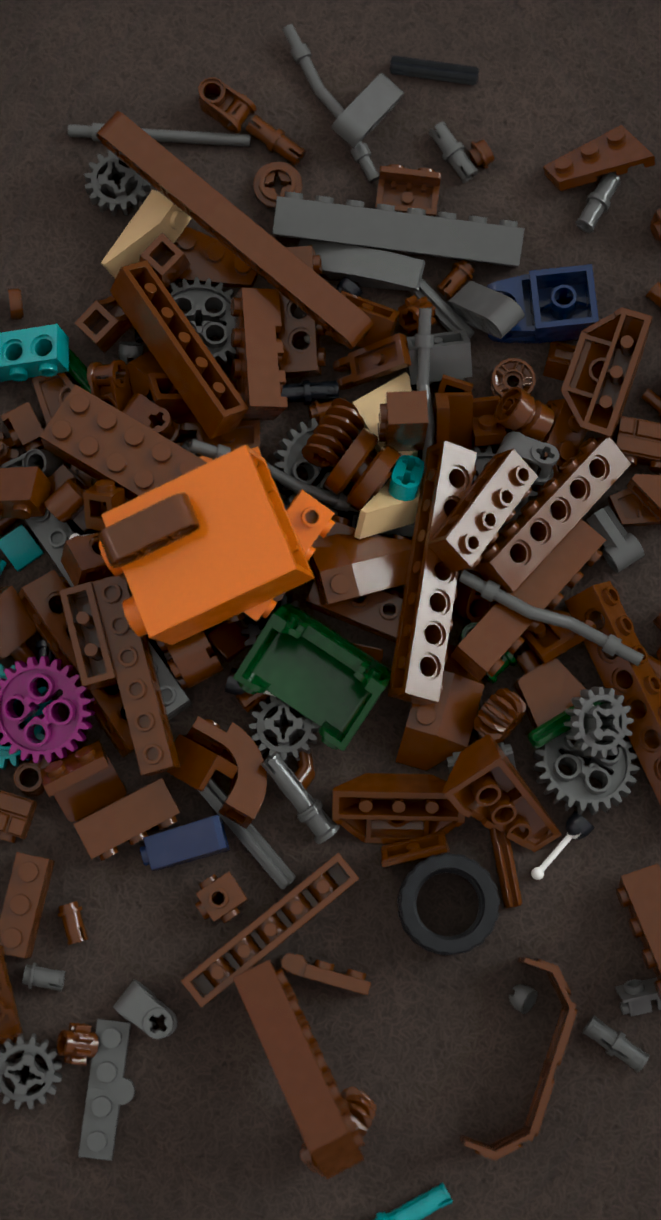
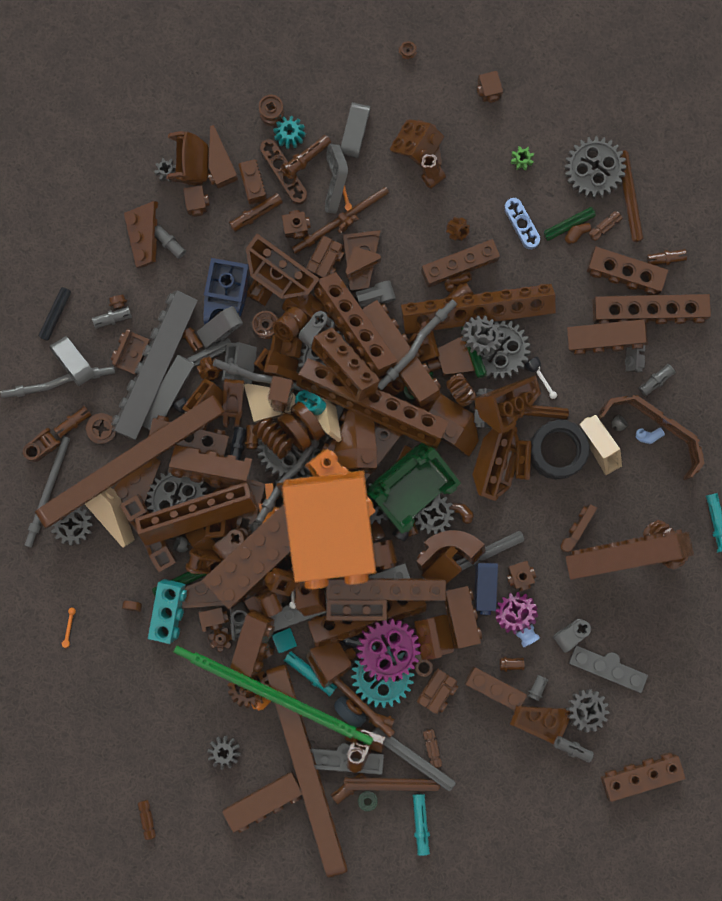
camera: 80 degrees left, 5 degrees up
(77, 1044) = (580, 677): reddish brown gear -> none
(125, 936) = (528, 636): none -> light blue wheel
(149, 530) = (315, 555): reddish brown beam -> none
(156, 920) = (526, 613): none -> magenta gear
(270, 930) = (546, 552): reddish brown brick -> none
(308, 809) = (484, 512): dark grey pin -> none
(477, 975) = (602, 444): none -> tan slope
(514, 1055) = (649, 437): none -> light blue arm

